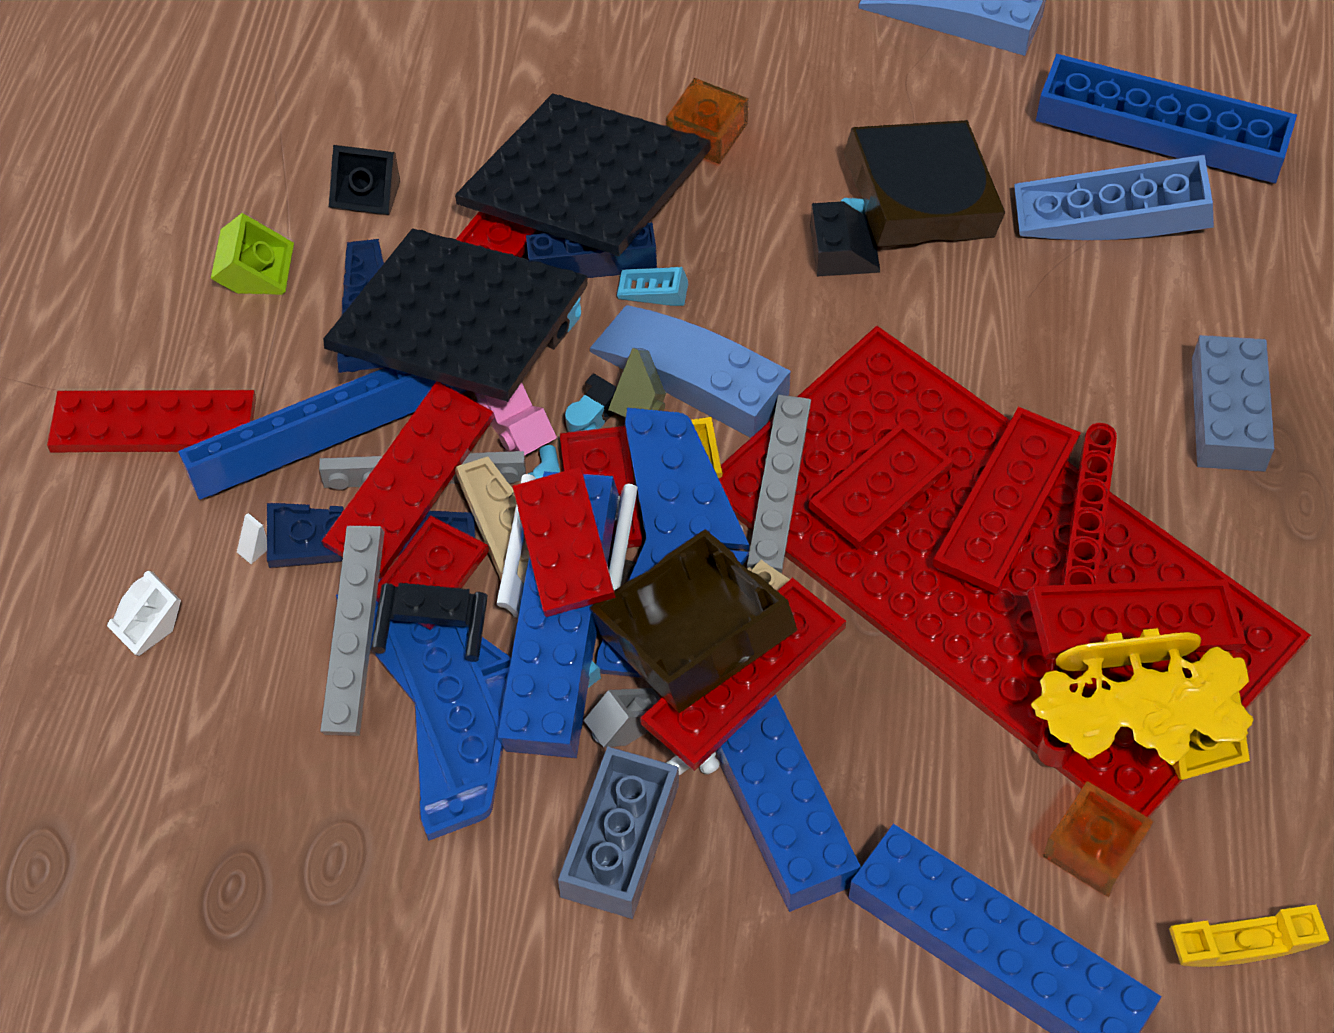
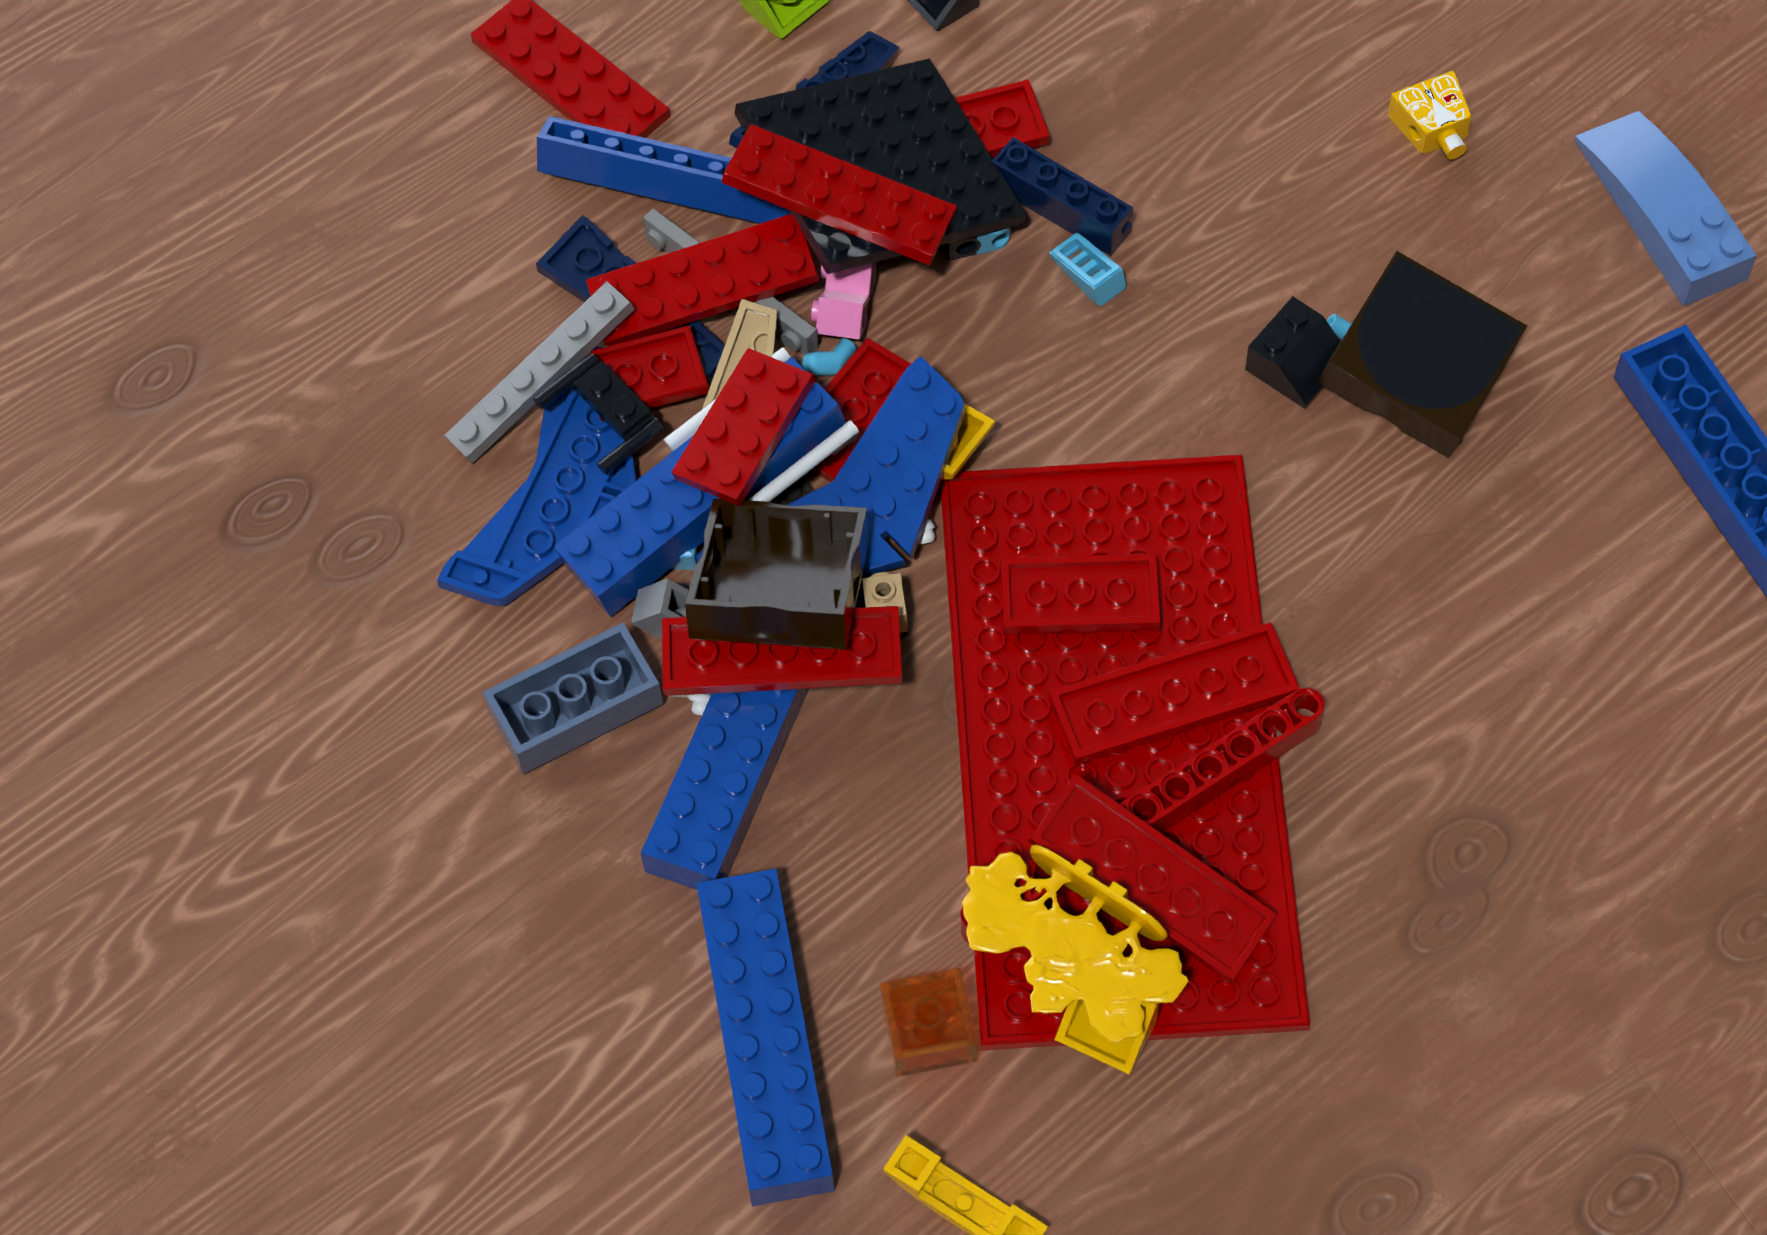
camera: 45 degrees right, 5 degrees up
(145, 614) = (408, 237): white slope -> none
(252, 539) = (543, 236): white piece -> none
(464, 342) = (839, 194): none -> red plate
(584, 173) = (1127, 116): black plate -> none
(593, 407) = (919, 337): leg -> none
(638, 385) = (967, 349): olive slope -> none
(699, 367) = (1042, 369): medium blue slope -> none
(710, 114) = (1292, 147): clear orange brick -> none
(768, 46) = (1433, 115): none -> yellow torso
(779, 482) = (999, 525): light grey plate -> none
(1118, 202) = (1591, 513): medium blue slope -> none
(1232, 403) = (1476, 775): sand blue brick -> none

